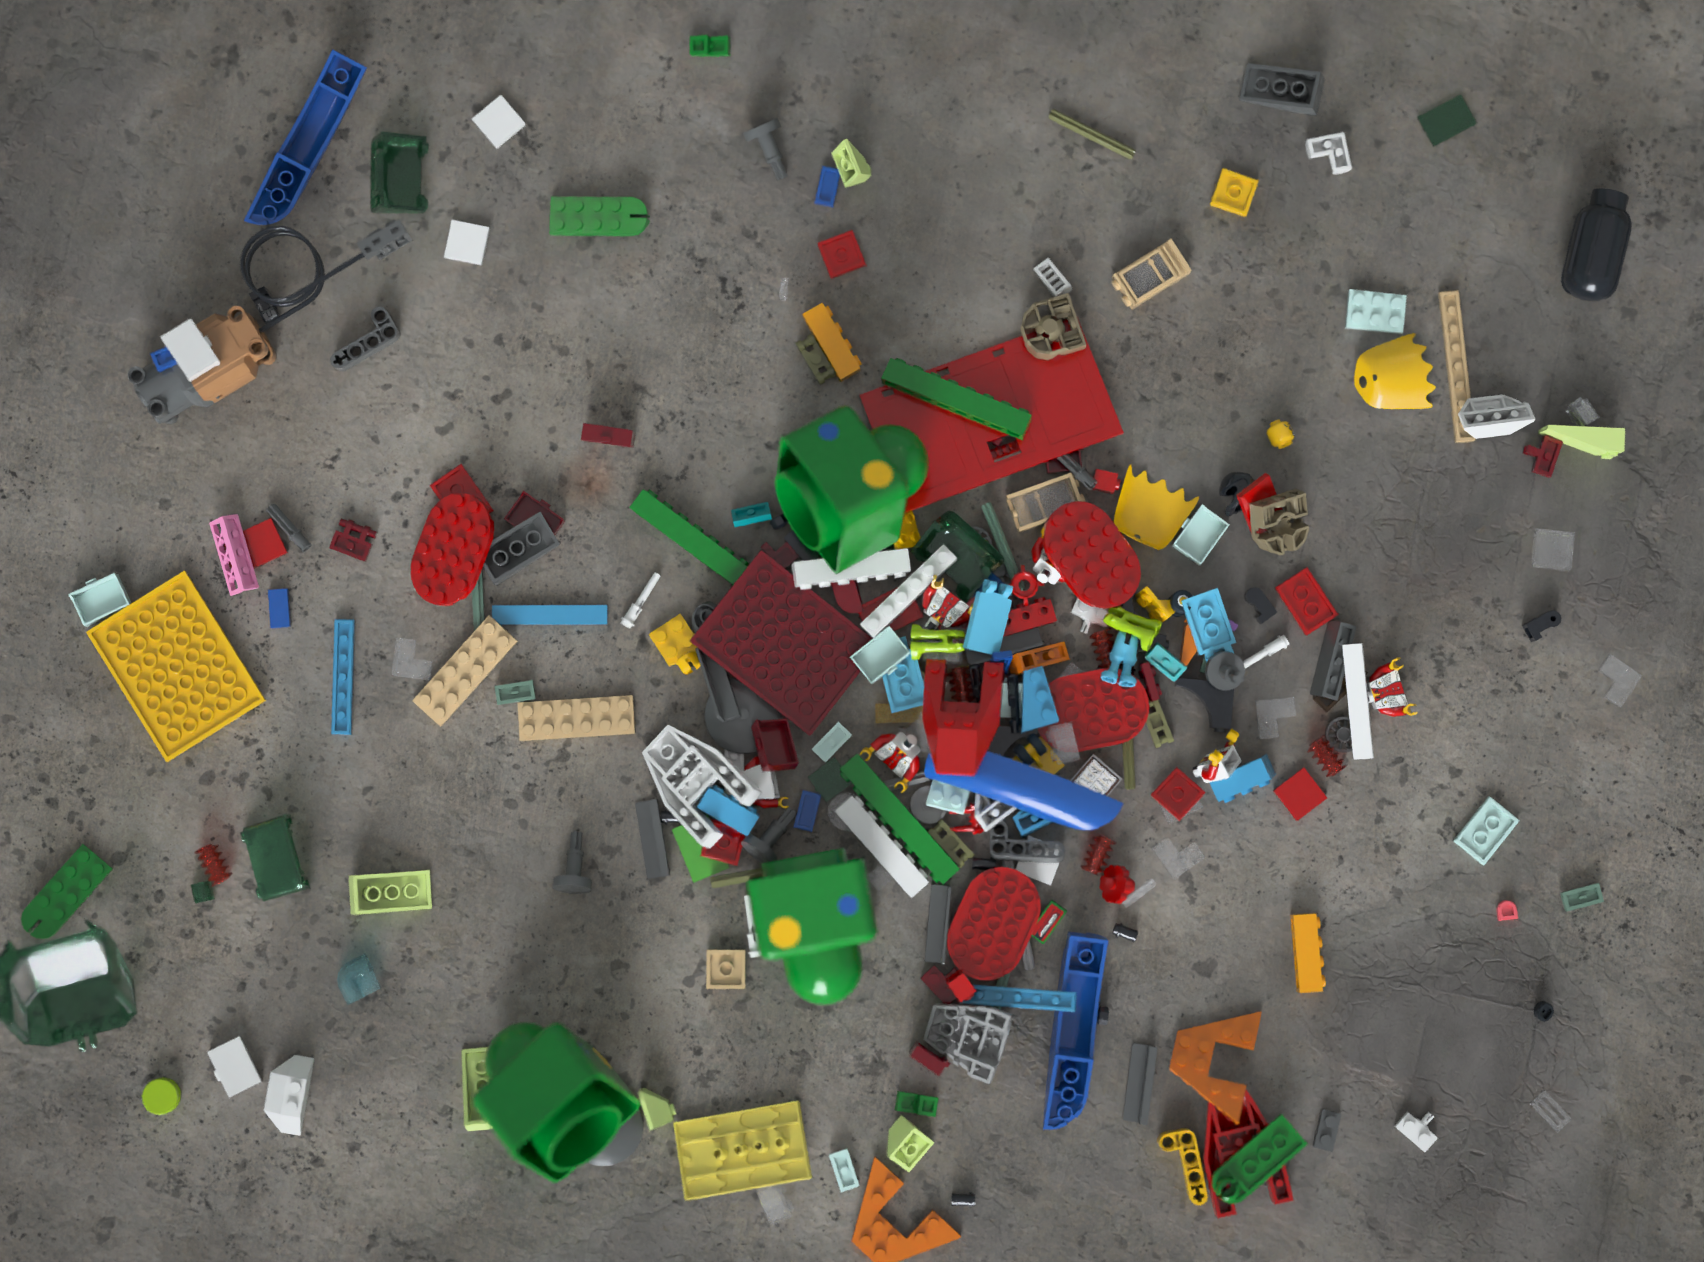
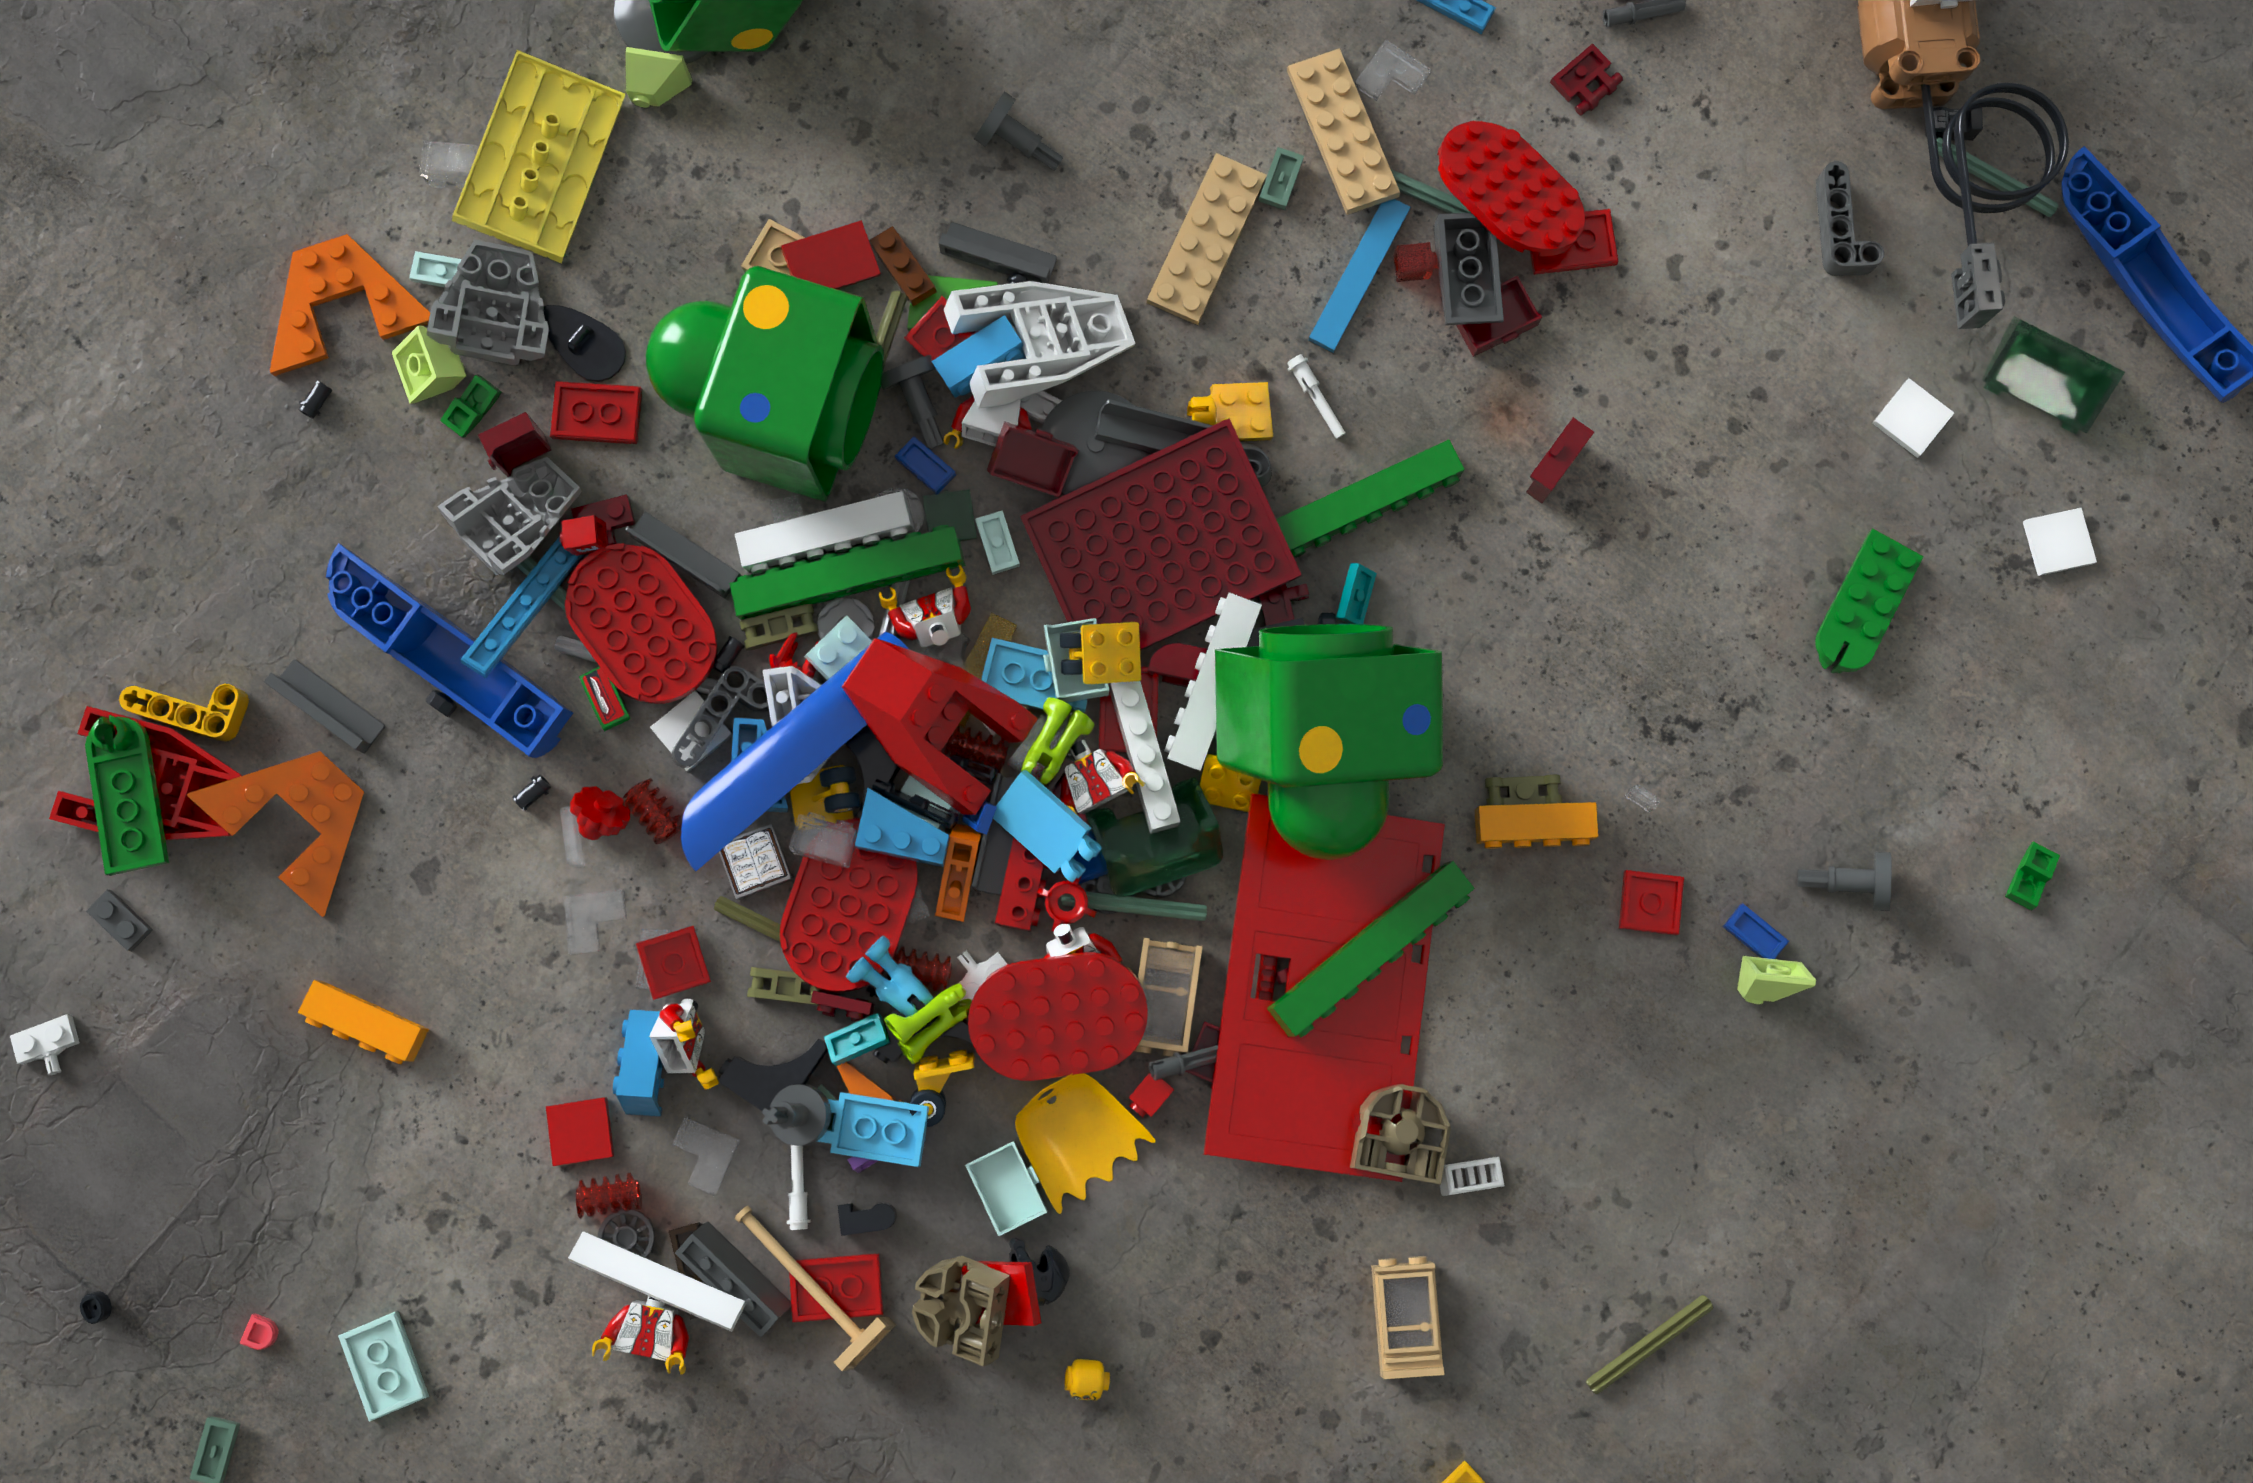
camera: 120 degrees right, 5 degrees down
(287, 264) = (2002, 181): none -> sand green axle
(526, 584) = (1414, 262): none -> clear red brick
(692, 891) = (902, 266): none -> reddish brown plate
(712, 936) = (833, 257): none -> red tile
(840, 1059) = (585, 343): none -> black shield
(850, 1122) = (492, 306): none -> light grey wedge
(871, 639) = (1103, 653): none -> yellow plate
(880, 1026) = (596, 412): none -> red tile
(1327, 569) = (862, 1339): none -> tan tile

